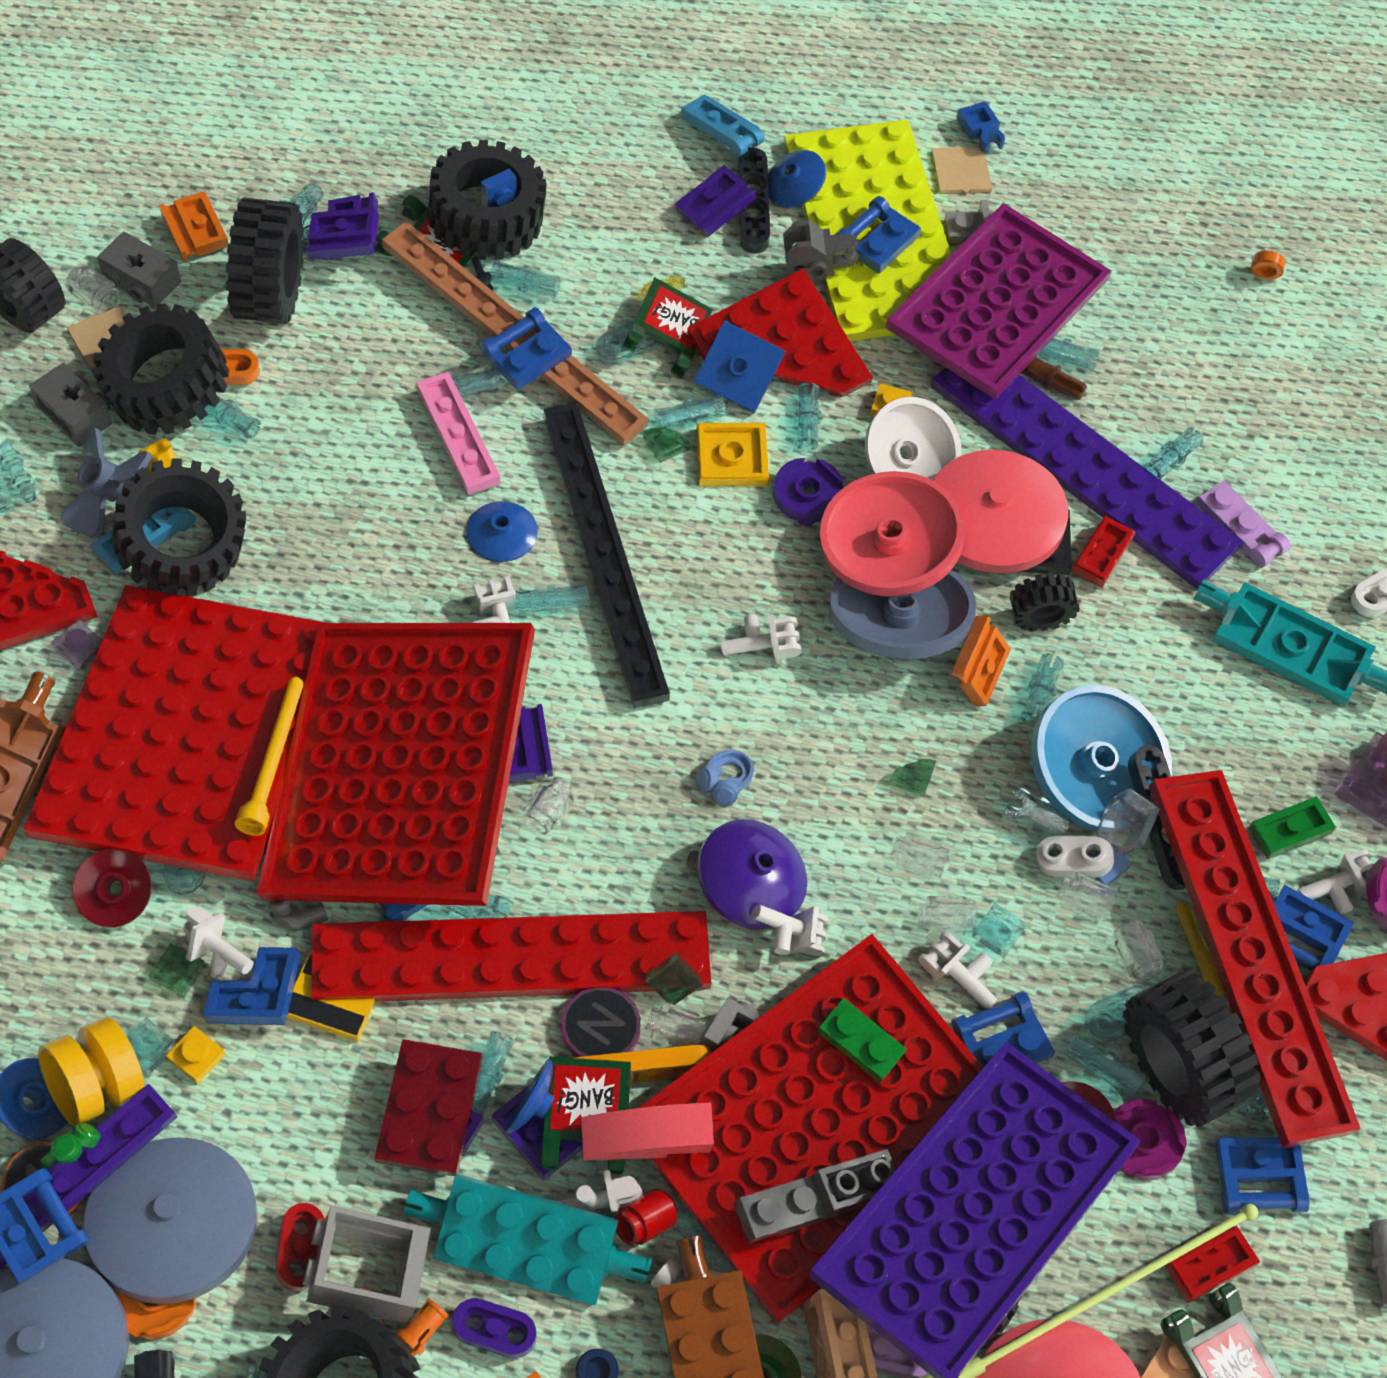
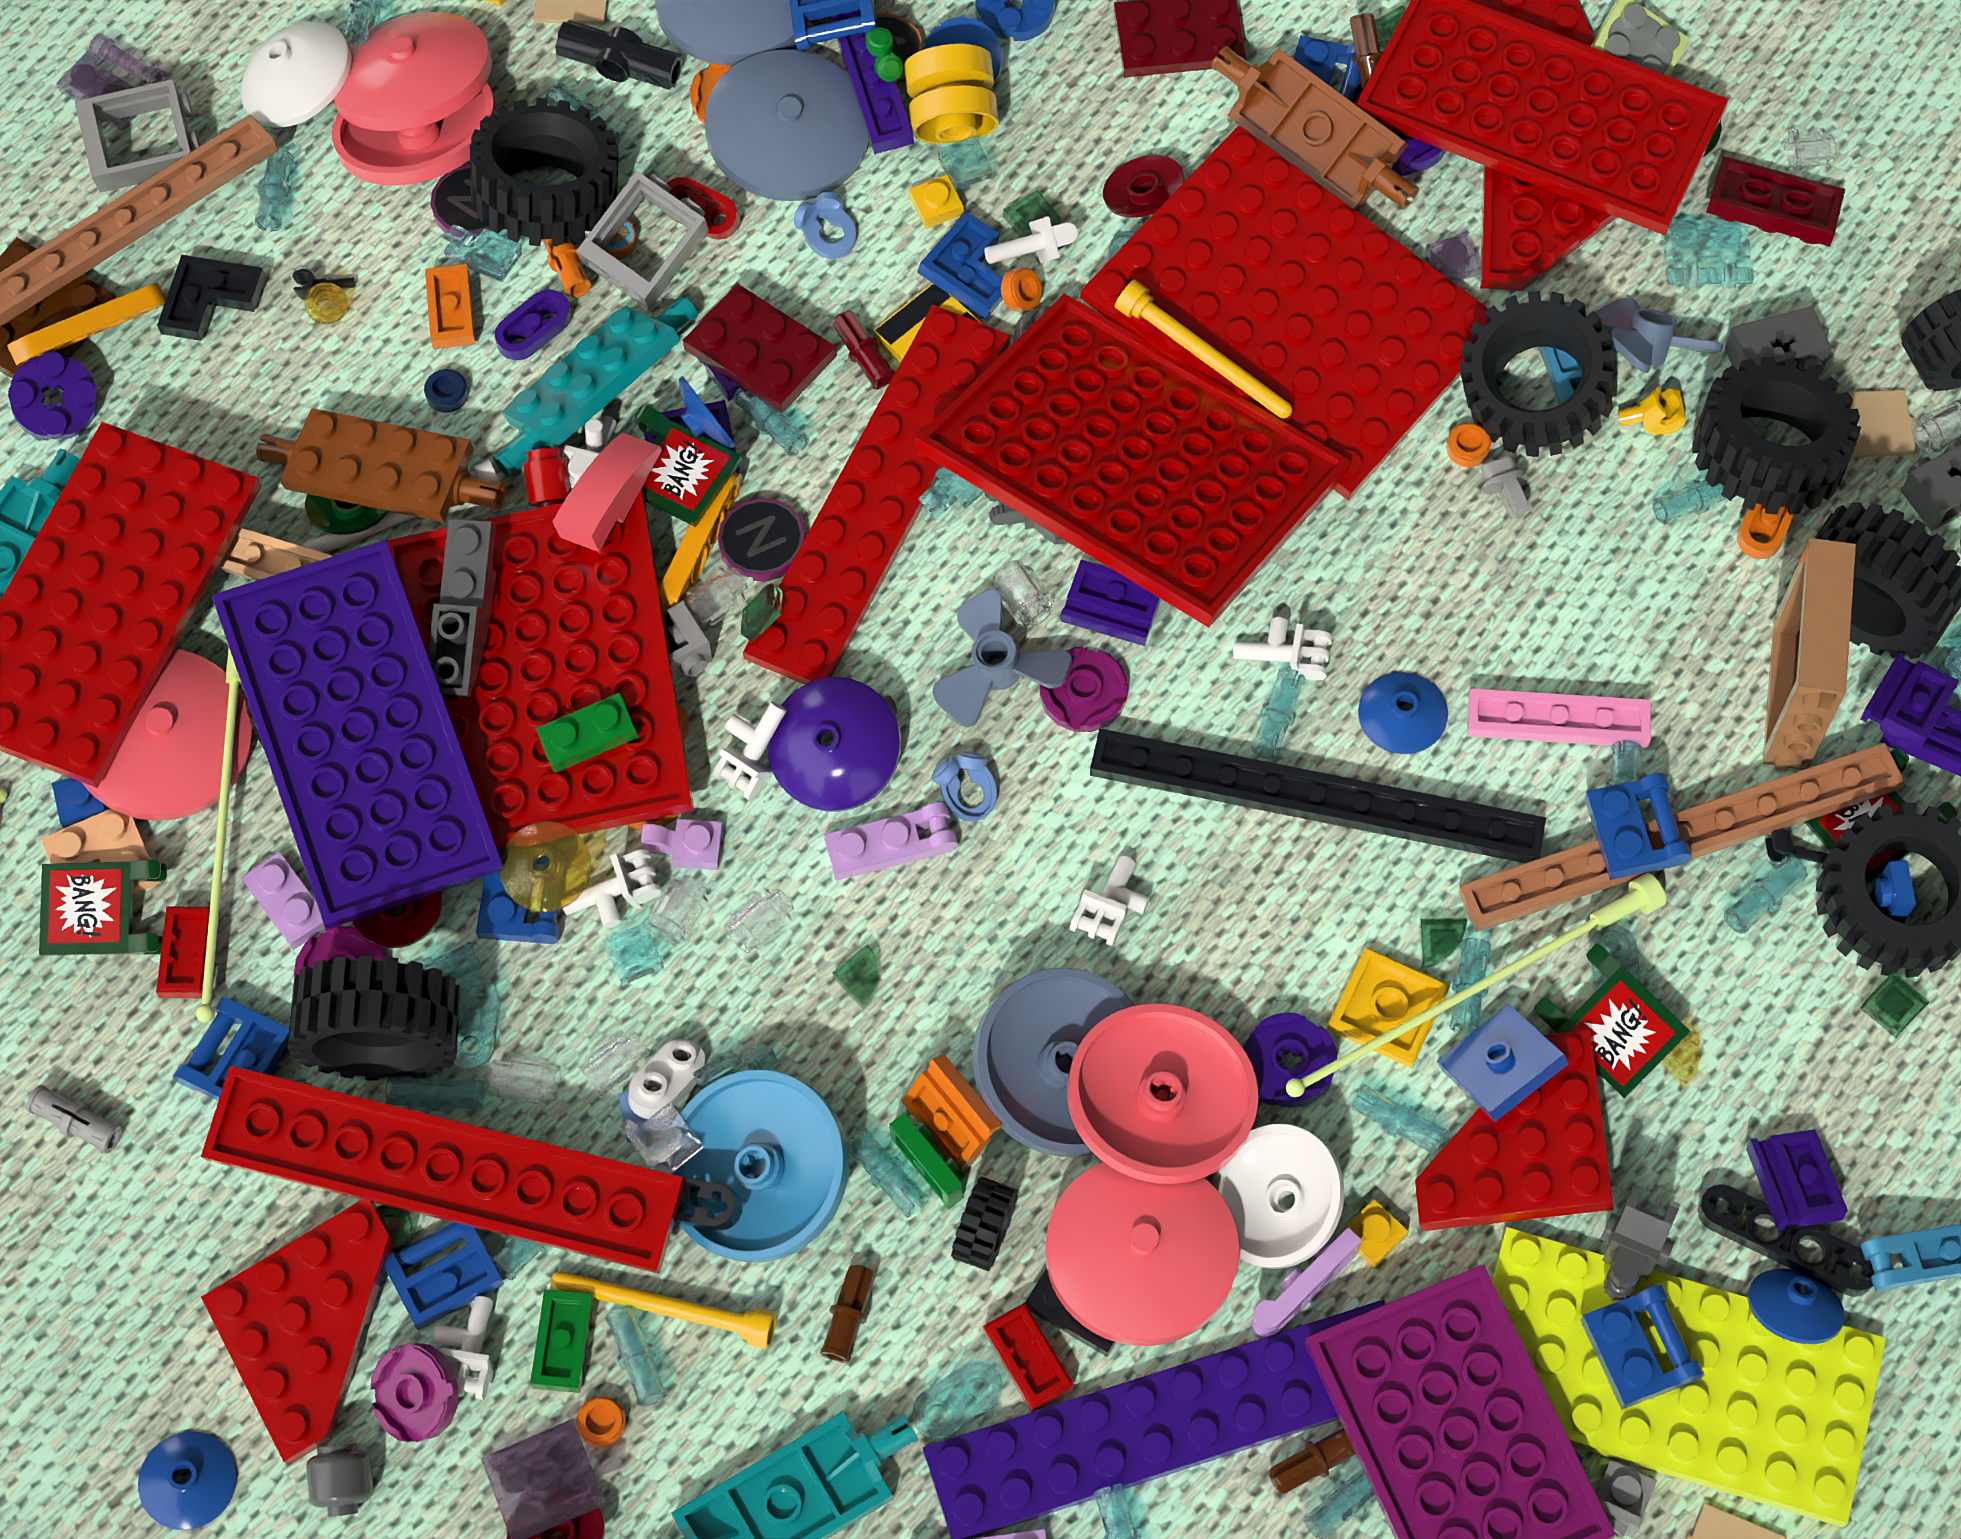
camera: 125 degrees right, 5 degrees up
(250, 572) = (1468, 445): none -> orange tile
(261, 937) = (1021, 289): none -> orange tile
(269, 1151) = (830, 207): none -> medium blue piece
(276, 530) = (1505, 478): none -> light grey piece
(345, 236) = (1809, 654): none -> medium nougat window
(381, 1034) = (863, 349): none -> dark red axle
(562, 195) = (1894, 1005): none -> clear green tile
(588, 819) = (966, 691): none -> sand blue piece
(601, 356) = (1644, 894): none -> yellowish green piece
(604, 747) = (1082, 704): none -> magenta tile
(802, 806) = (889, 841): none -> lavender plate
(892, 937) = (692, 844): none -> lavender plate
(967, 1027) = (554, 886): none -> clear yellow dish
(970, 422) = (1303, 1286): none -> lavender plate
(1023, 652) = (916, 1145): none -> green plate
(1120, 1216) = (285, 900): none -> lavender plate
(1149, 666) = (848, 1314): none -> reddish brown axle
(1158, 577) = (955, 1399): none -> clear light blue plate
(1197, 714) = (754, 1326): none -> yellow piece
(1267, 777) = (636, 1355): none -> clear light blue pin
(1320, 780) = (601, 1422): none -> orange tile

